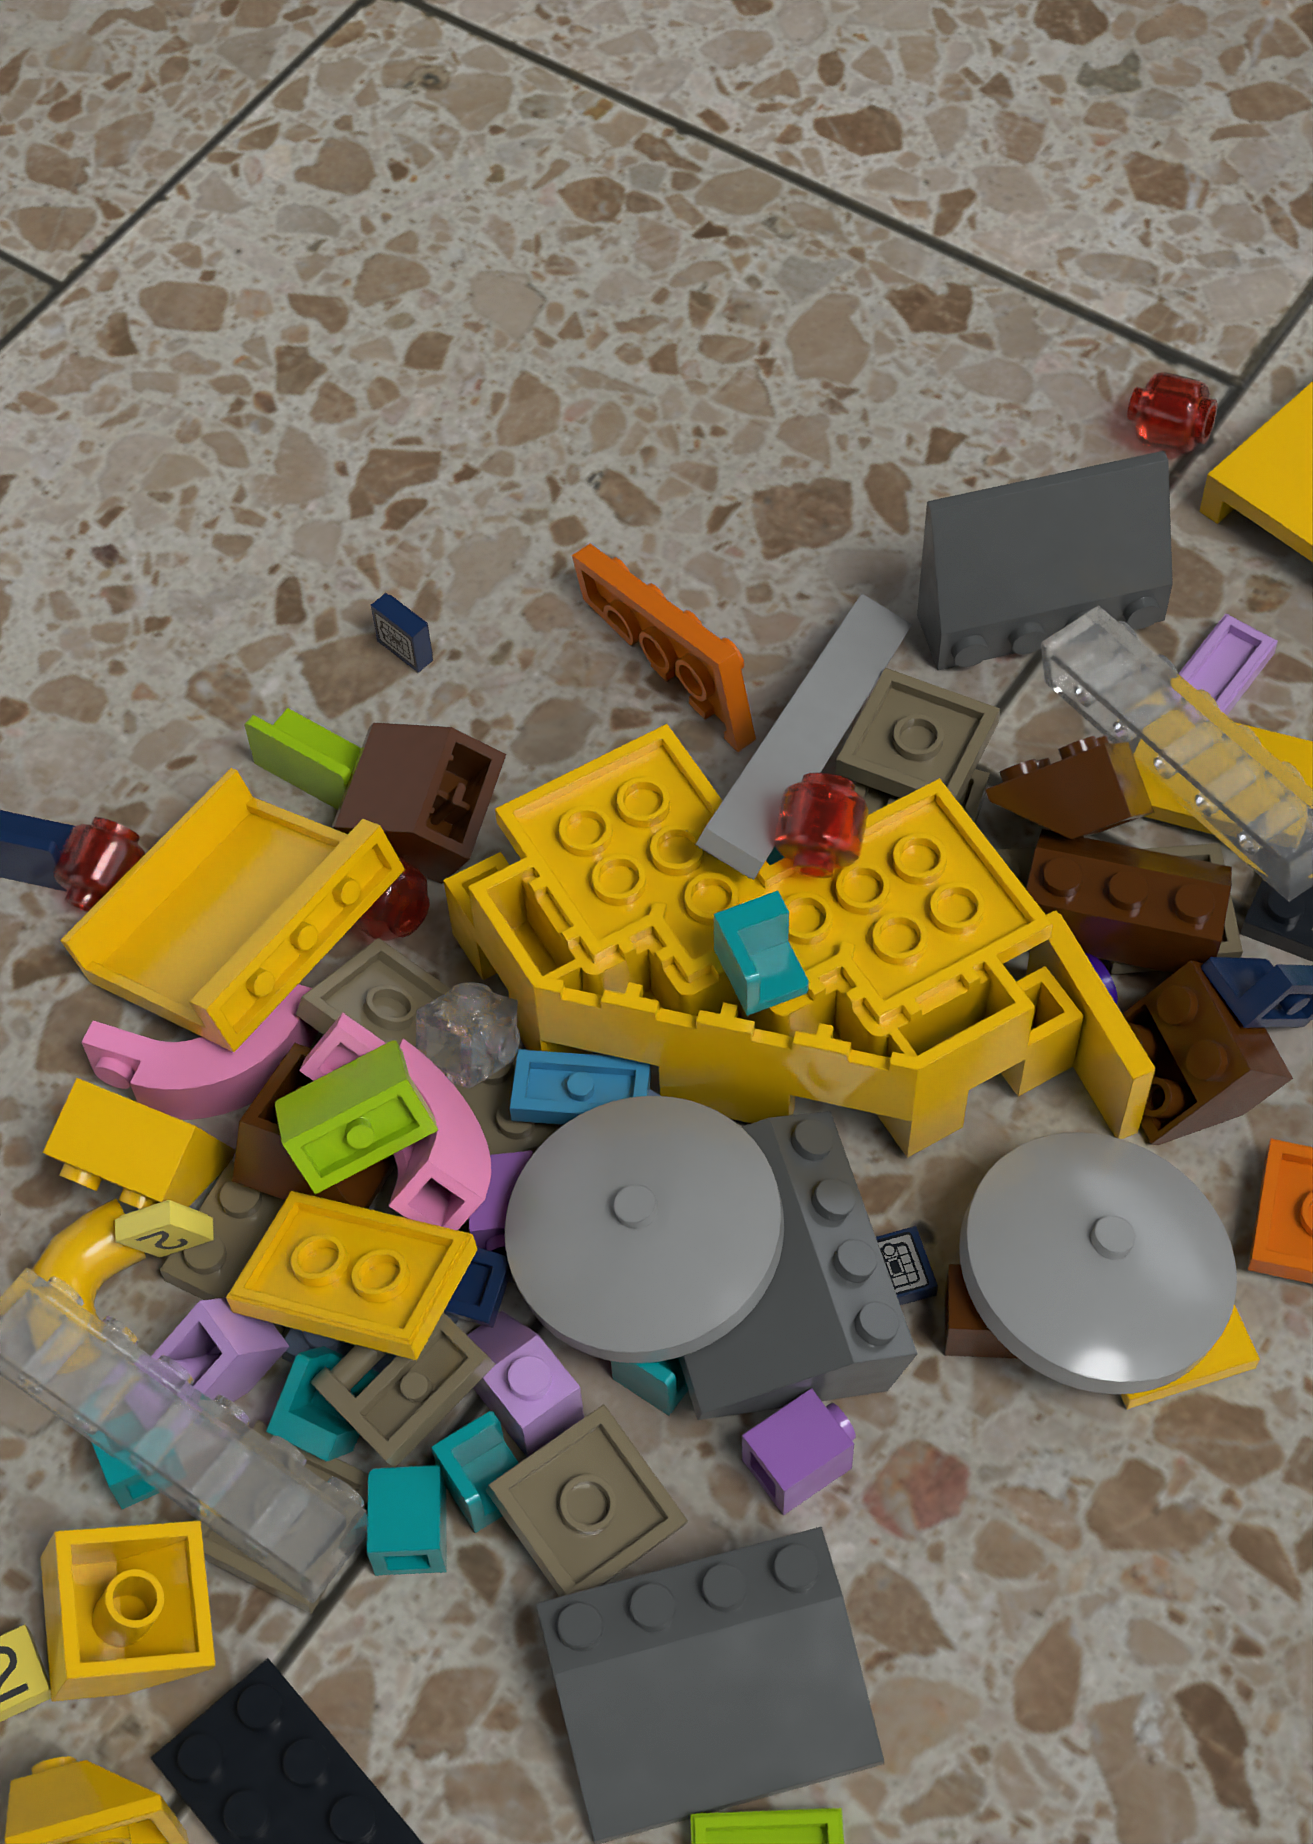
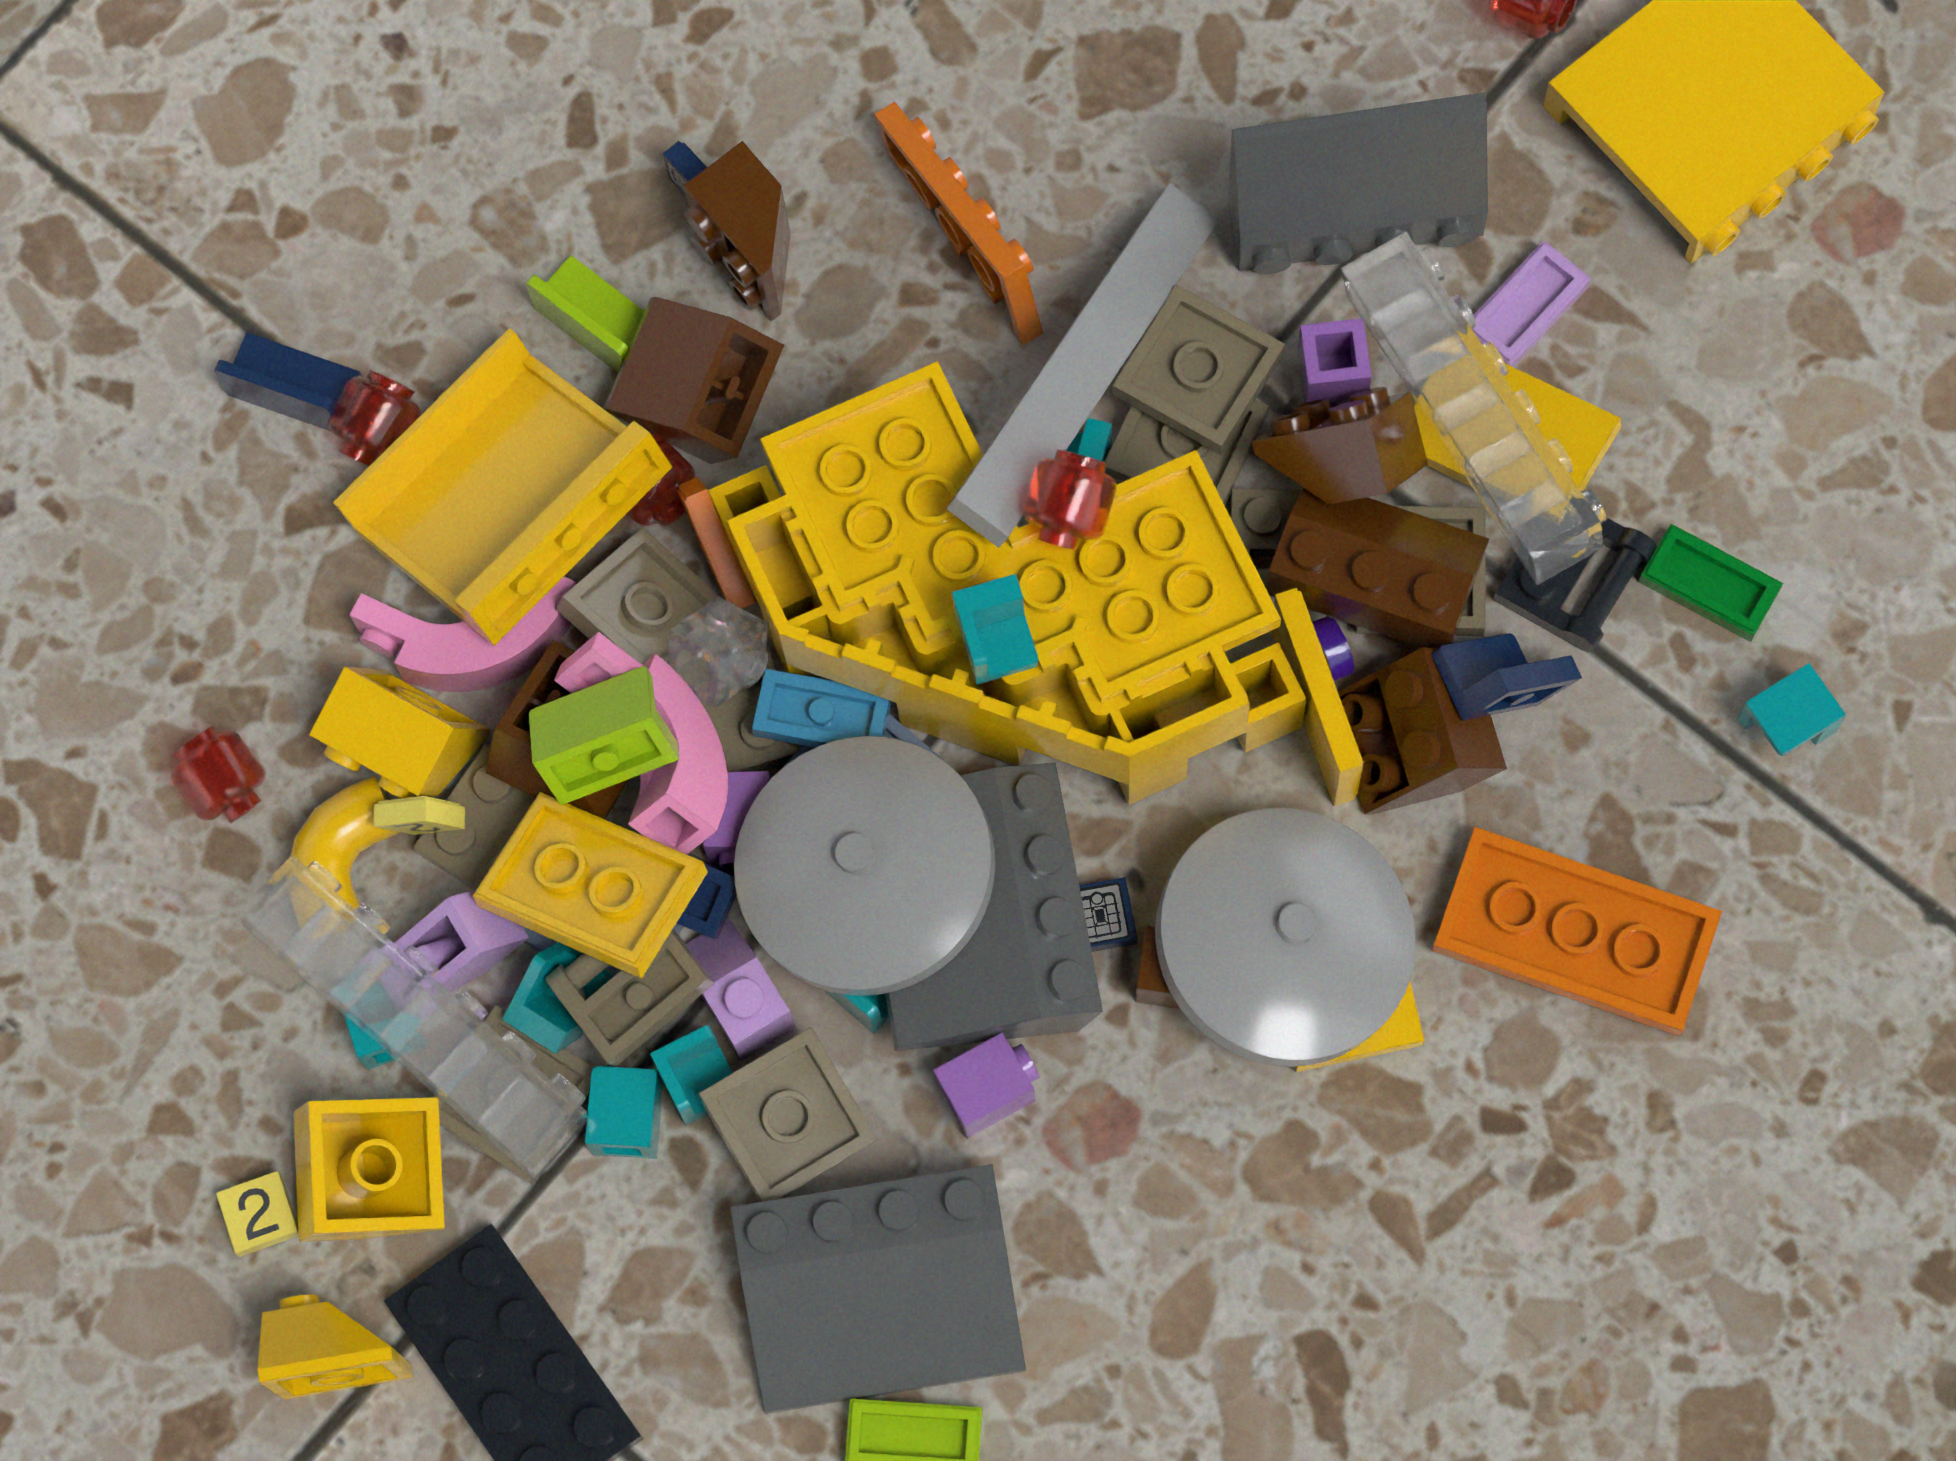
camera: 10 degrees right, 15 degrees up
(452, 656) = (742, 225): none -> reddish brown slope
(452, 934) = (715, 543): none -> orange tile
(1046, 719) = (1333, 360): none -> medium lavender brick

